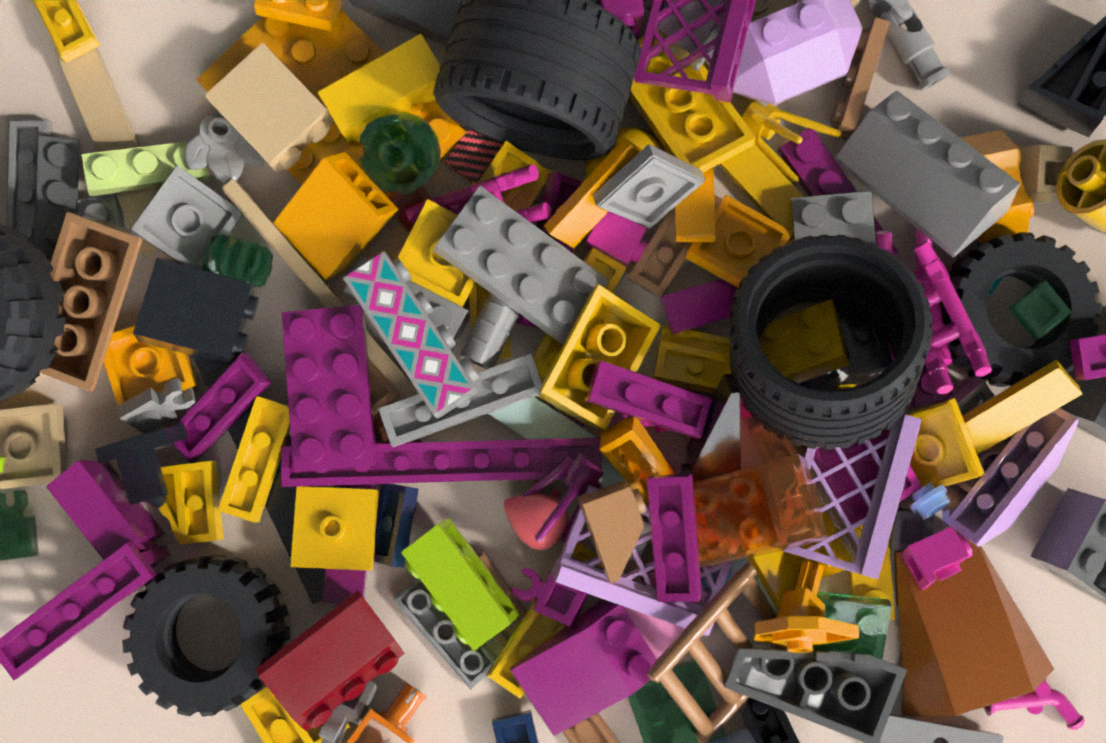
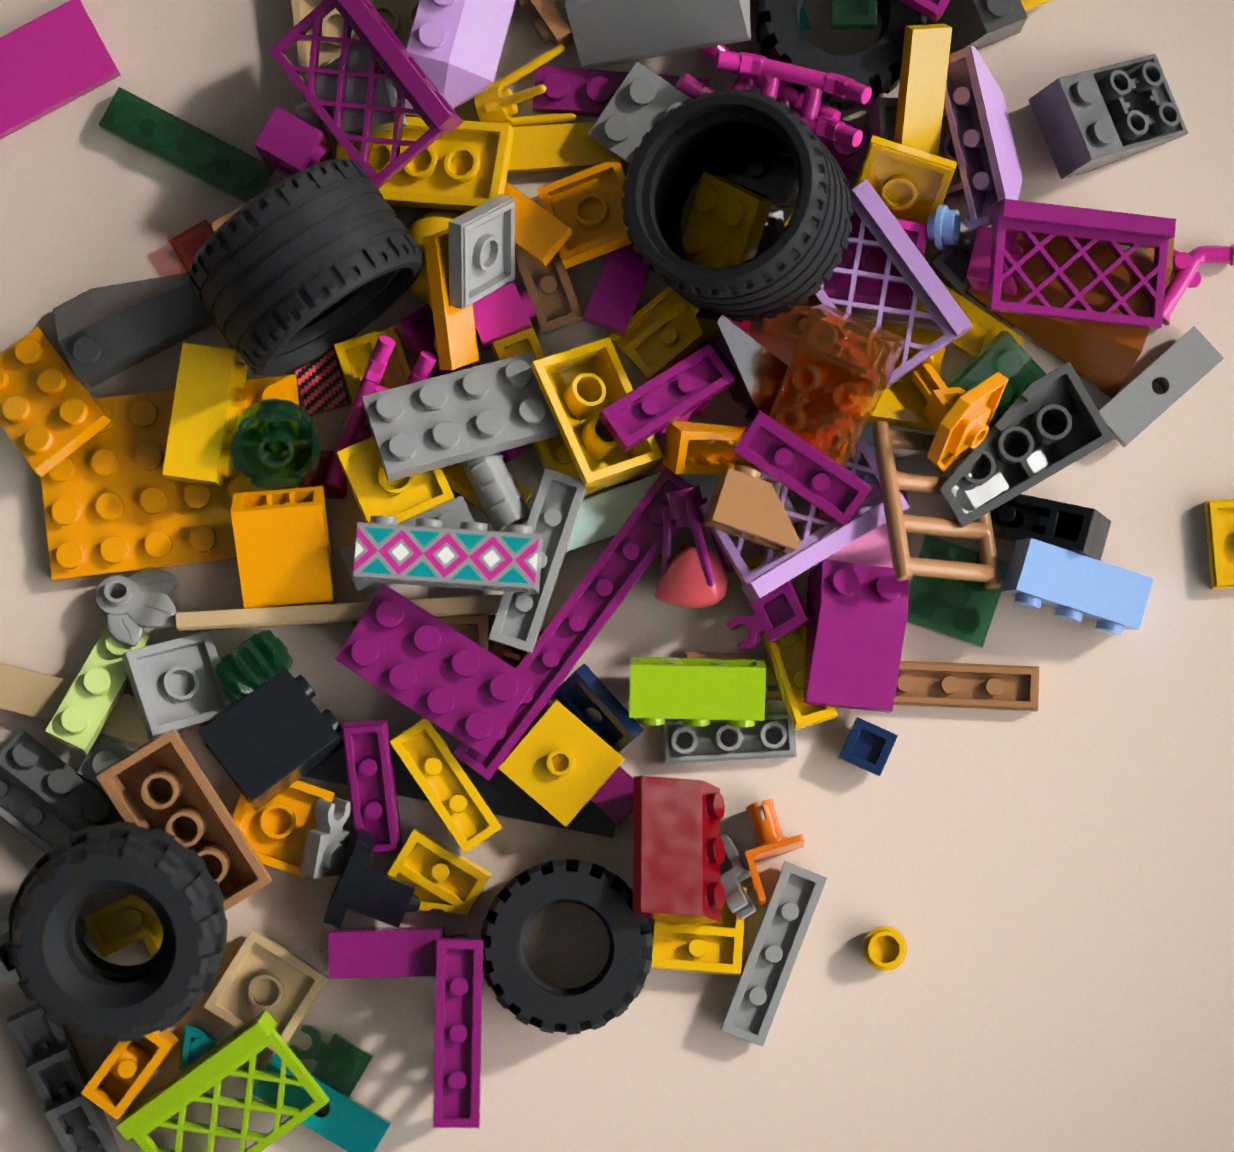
camera: 50 degrees left, 0 degrees up
(270, 108) = (140, 529): tan brick -> none
(1007, 594) = (1073, 225): none -> magenta fence

